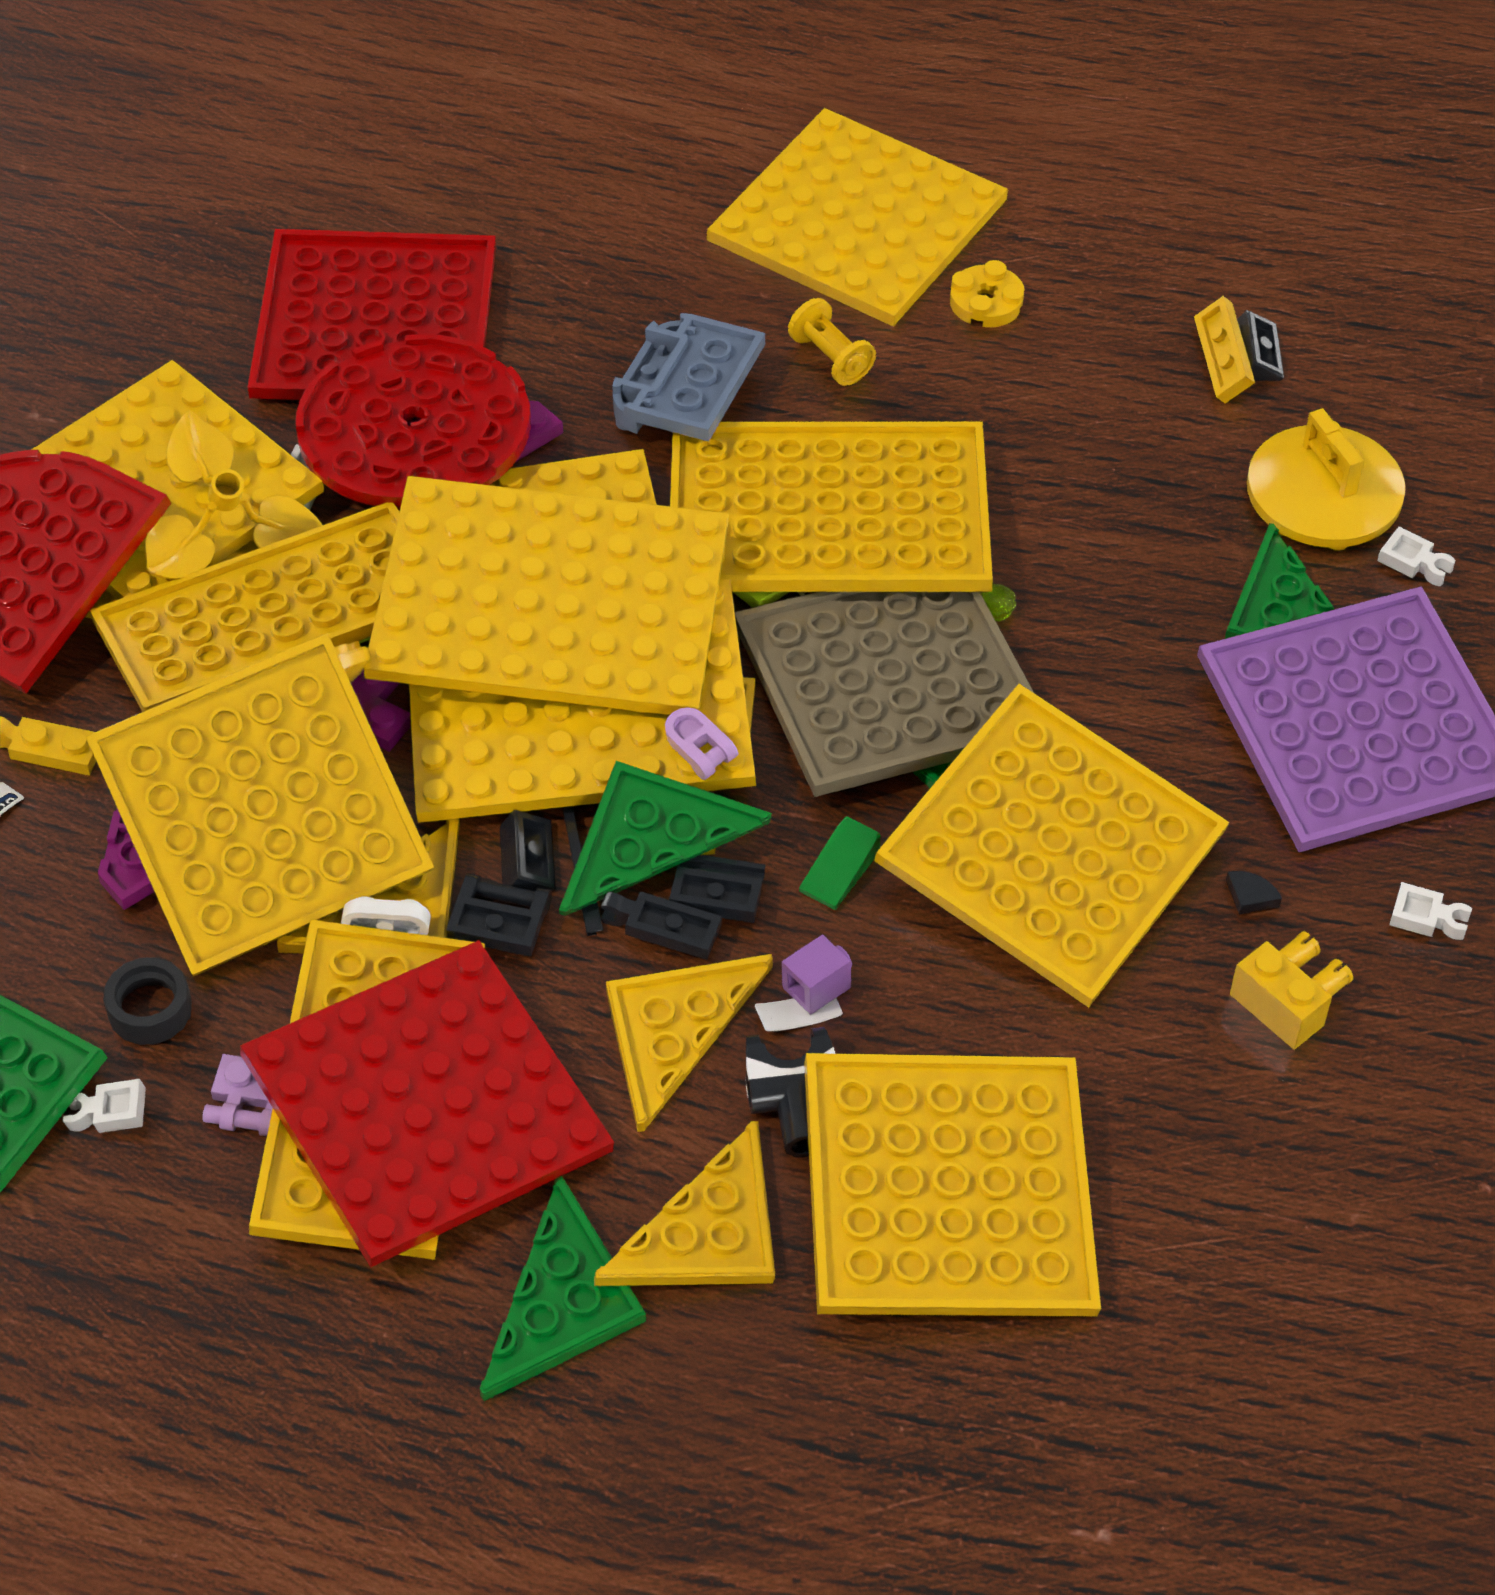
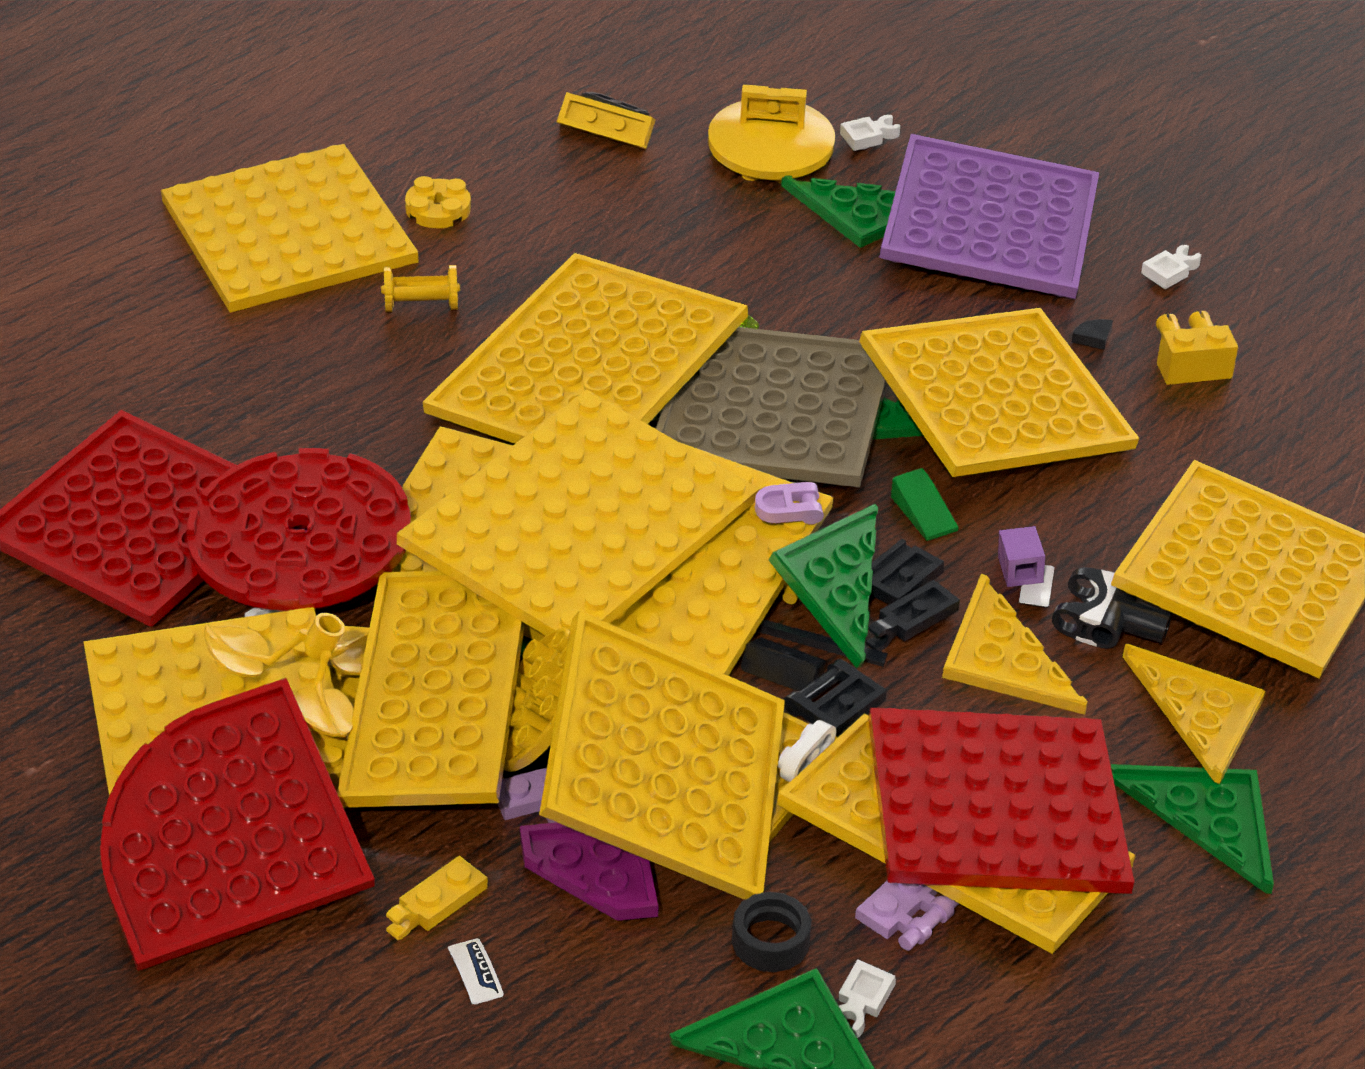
camera: 60 degrees left, 10 degrees down
(685, 376) = (386, 374): sand blue plate -> none

